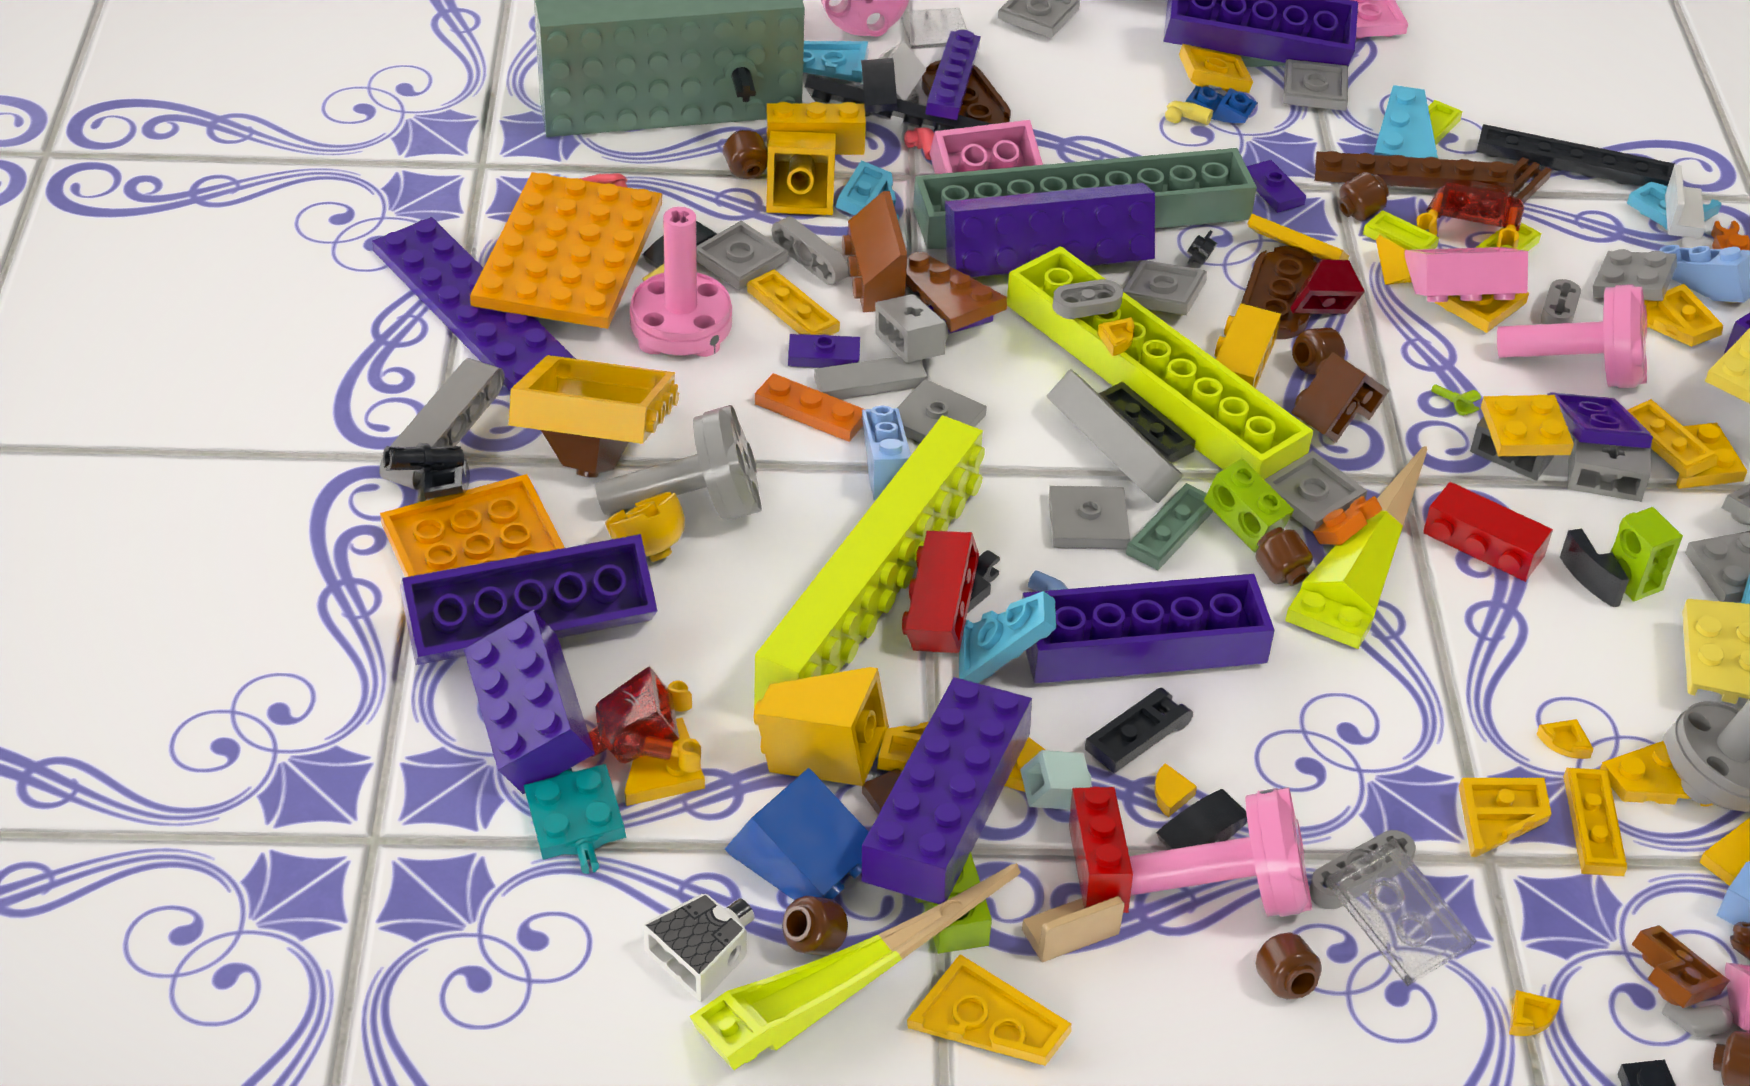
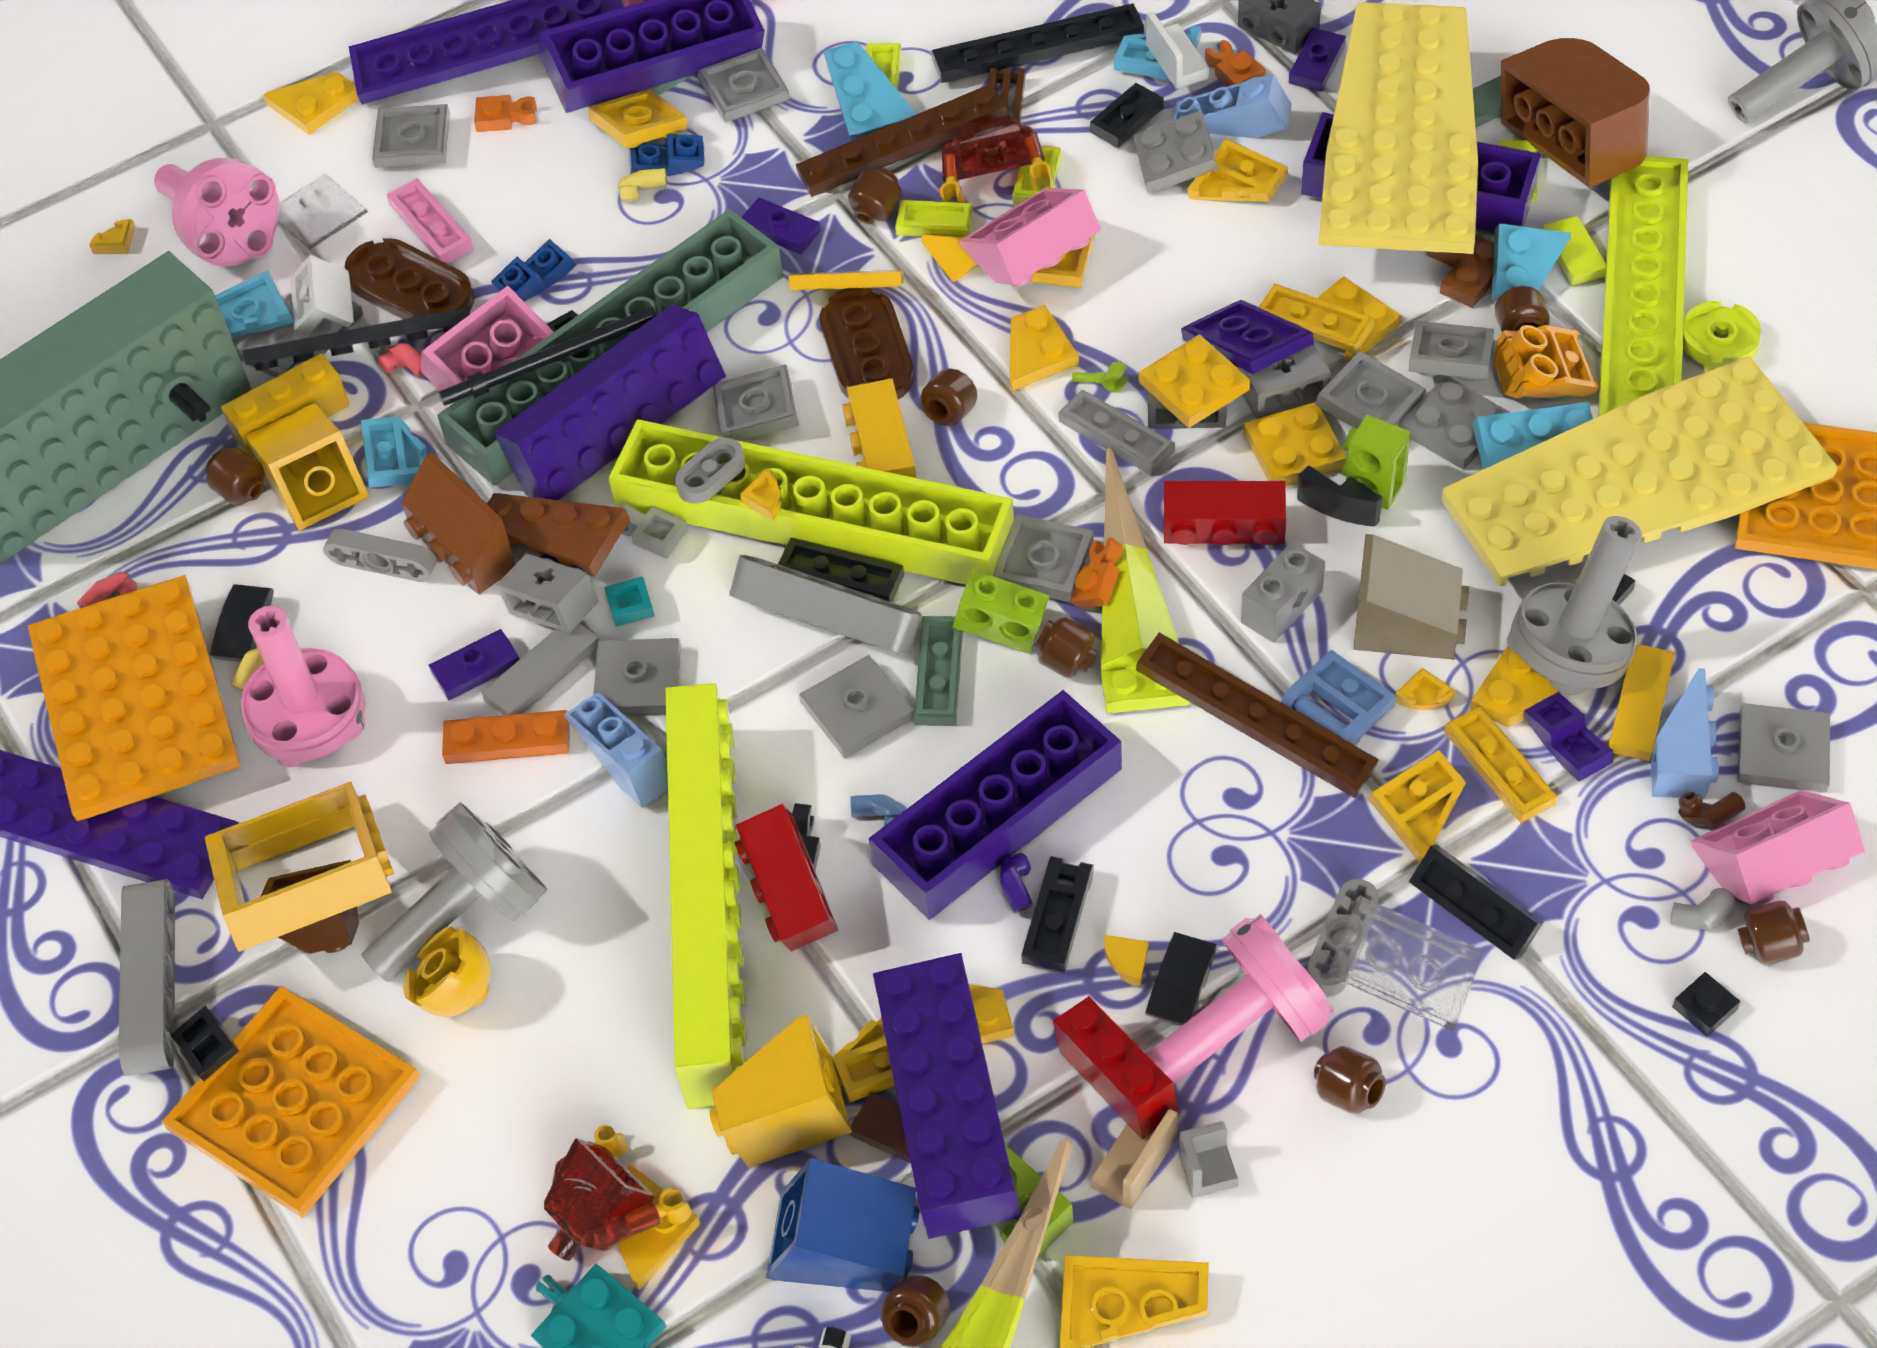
camera: 25 degrees left, 10 degrees up
(422, 458) = (168, 1037): black pin -> none
(528, 701) = (476, 1246): dark purple brick -> none
(567, 587) = (394, 1135): dark purple brick -> none
(740, 254) = (316, 597): light grey plate -> none
(792, 305) = (405, 628): yellow tile -> none
(879, 85) = (324, 323): black slope -> none
(953, 74) = (386, 267): dark purple plate -> none
(959, 168) = (479, 384): none -> black bar
(967, 365) = (629, 601): none -> teal plate
(1004, 636) = (880, 895): medium azure wing -> none
(1010, 67) = (430, 221): none -> bright pink plate
(1021, 330) = (654, 531): none -> light grey plate
(1052, 775) = (1026, 1017): light aqua brick -> none
(1069, 134) = (537, 272): none -> blue slope
(1115, 24) = (499, 112): none -> orange plate
(1117, 691) = (1012, 884): none -> dark purple arm
(1127, 955) = (1207, 1159): none -> light grey panel
(1201, 248) = (762, 339): black plate -> none
(1329, 289) = (913, 322): dark red slope -> none
(1337, 396) = (1003, 444): reddish brown brick -> none
(1406, 678) = (1257, 715): none -> reddish brown plate
(1418, 355) = (1038, 348): none -> yellow wing
(1442, 440) = (1116, 430): none -> light grey tile
(1494, 606) = (1282, 592): none -> light grey brick
(1495, 902) = (1476, 902): none -> black plate
(1497, 699) = (1346, 690): none -> medium blue plate
(1532, 1013) = (1570, 993): yellow tile -> none
(1558, 304) = (1134, 218): light grey beam -> none
(1585, 508) = (1292, 441): none -> yellow plate
(1595, 661) = (1408, 602): none -> dark tan slope
(1613, 235) = (1126, 115): none -> black plate
(1618, 336) = (1214, 236): bright pink piece -> none
(1669, 832) = (1565, 736): none -> dark purple slope
(1678, 971) = (1676, 875): dark orange plate -> none
(1681, 504) = (1371, 390): none -> light grey plate

